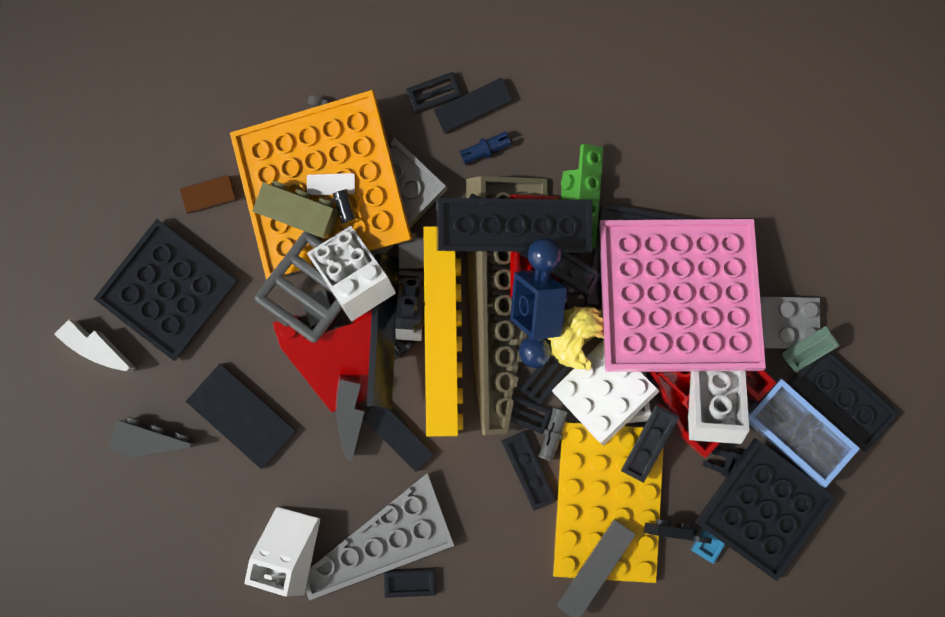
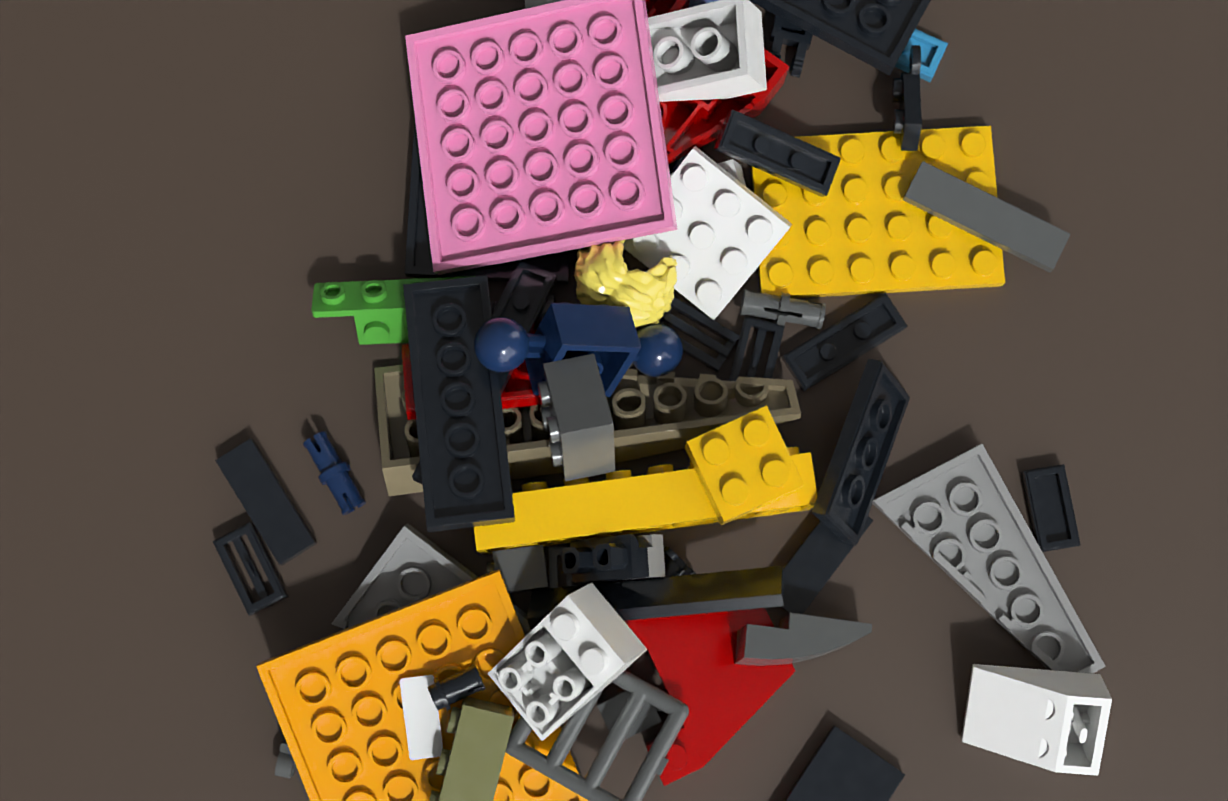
camera: 95 degrees left, 5 degrees down
(452, 392) = (743, 465): none -> yellow brick
(456, 469) = (861, 453): none -> black tile
(495, 295) = (577, 417): none -> dark grey brick

